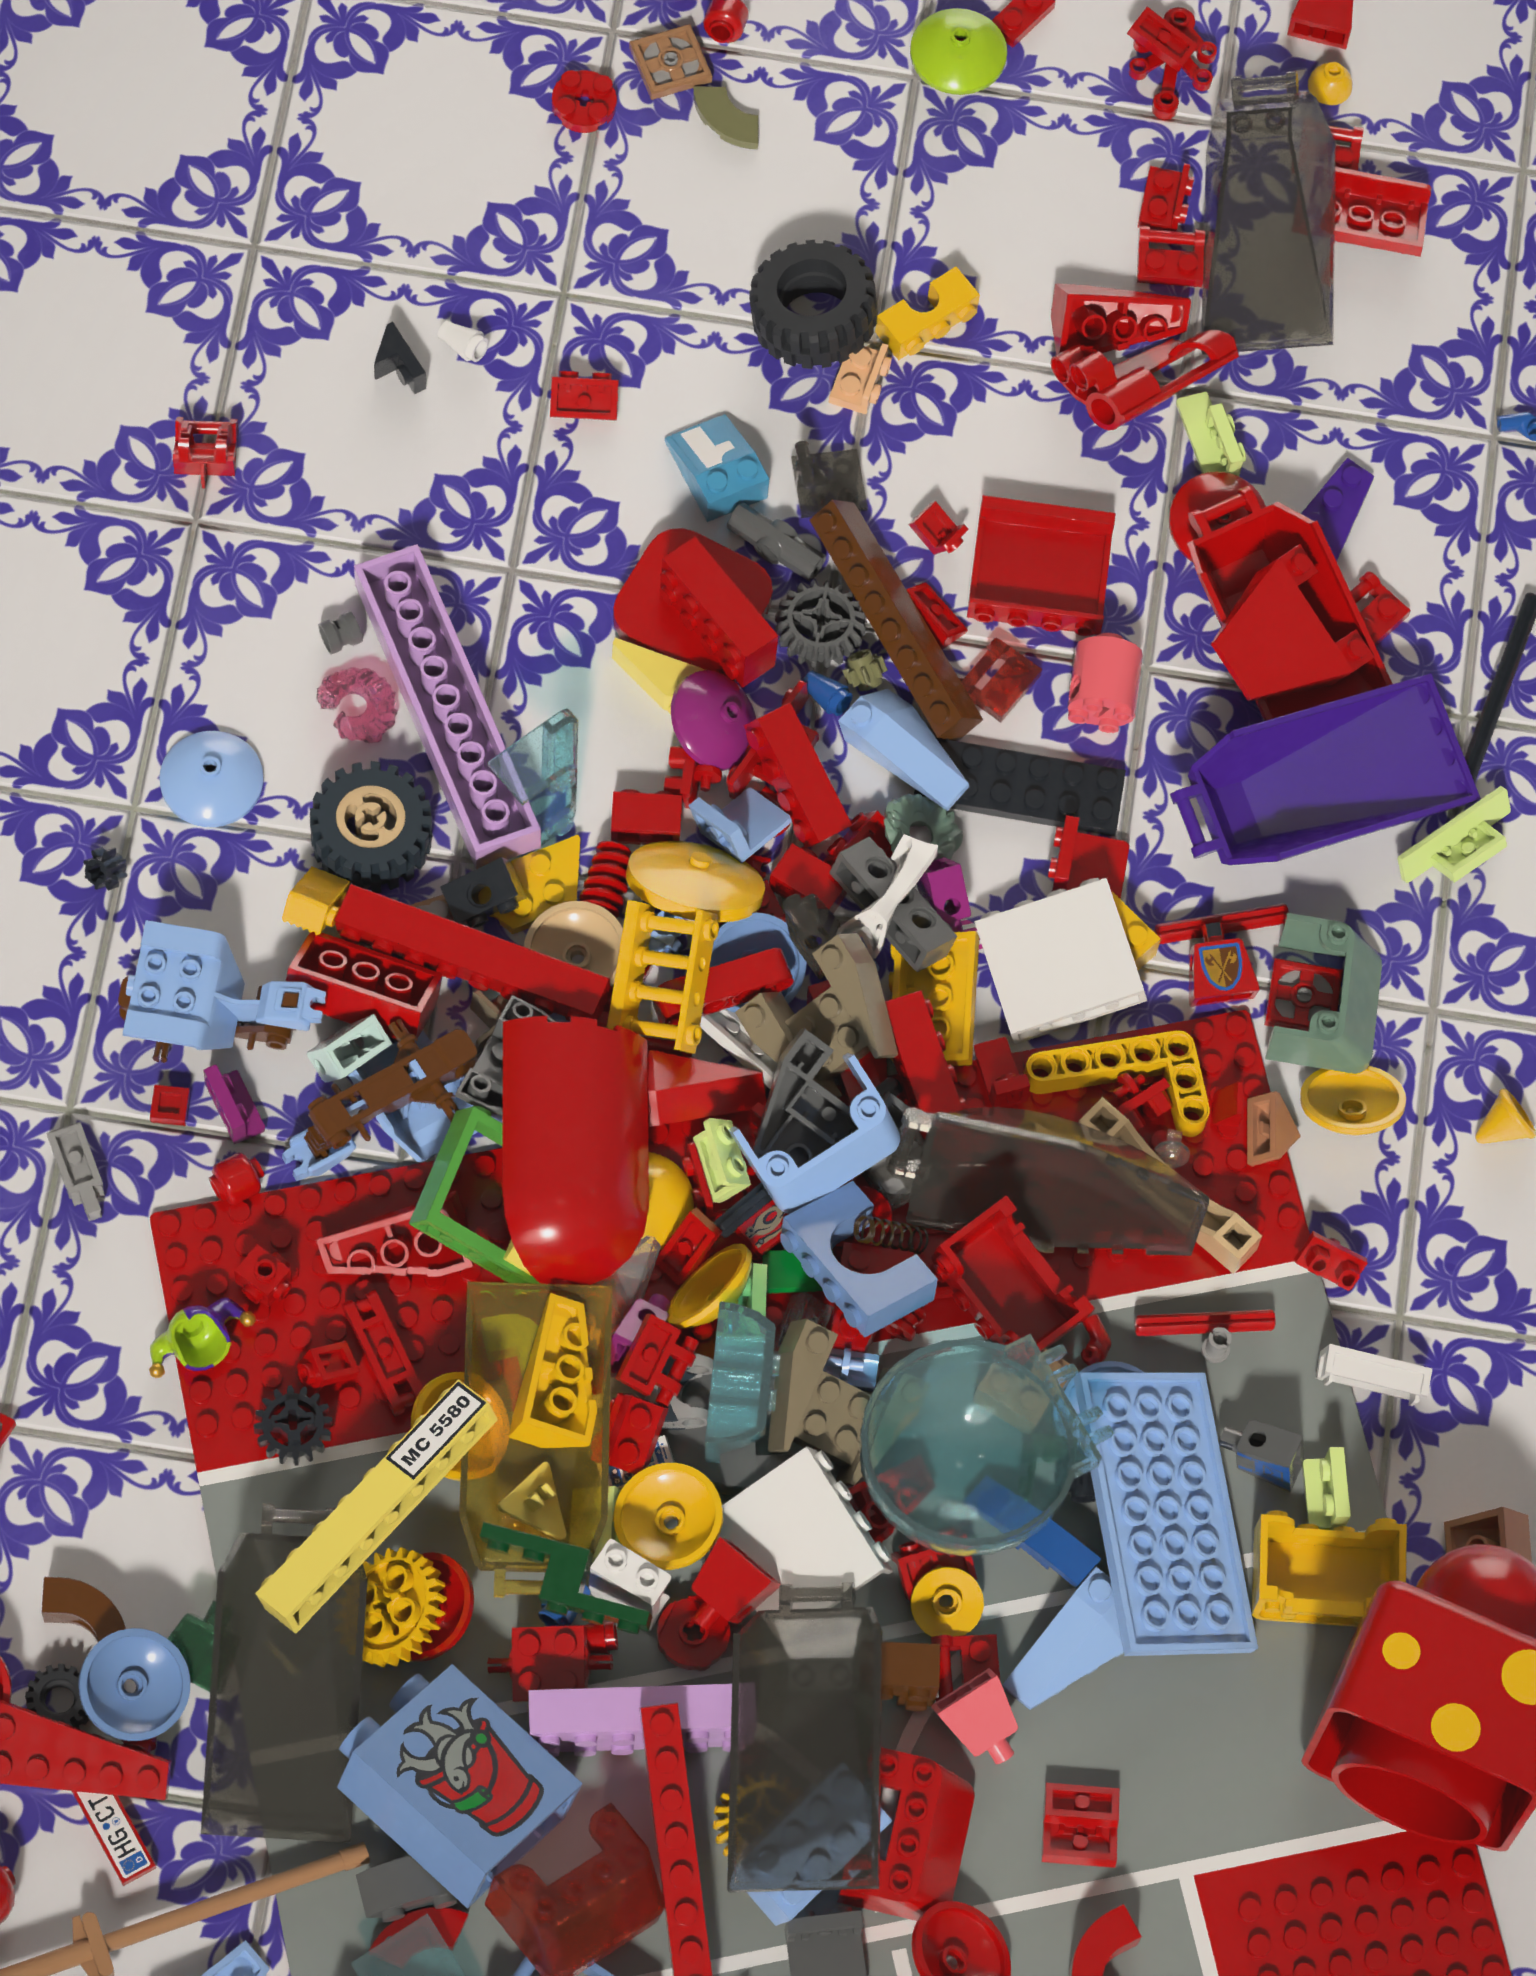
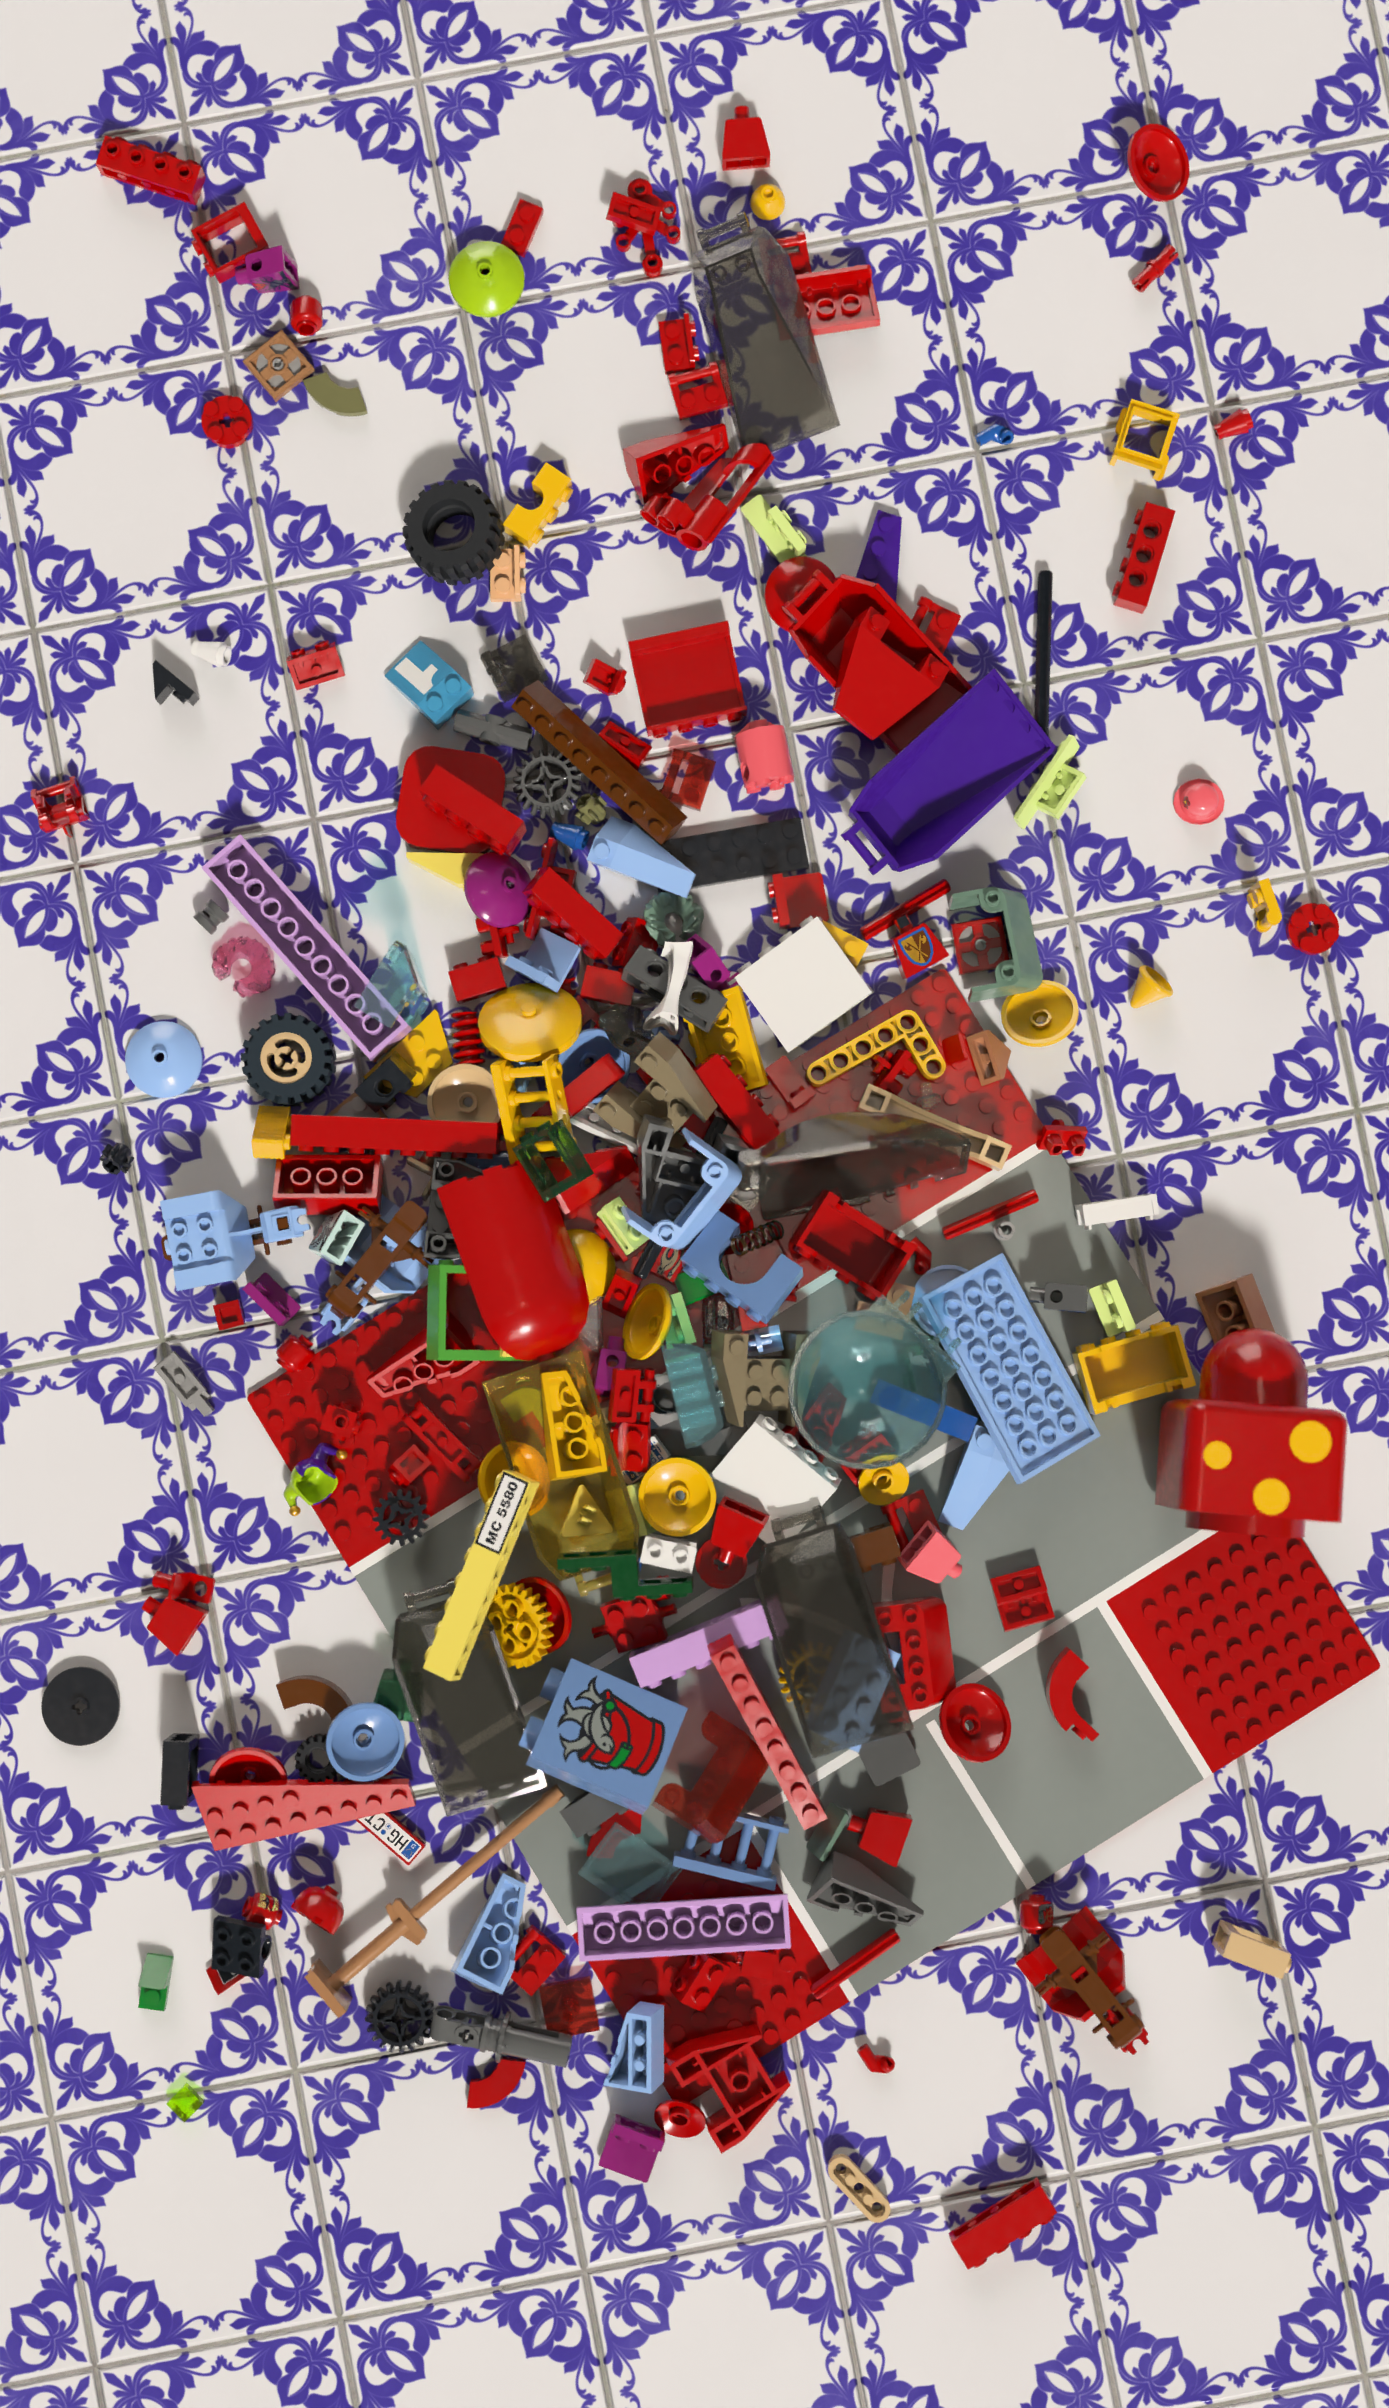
camera: 15 degrees left, 20 degrees up
(638, 1044) = (537, 1168): none -> clear green window

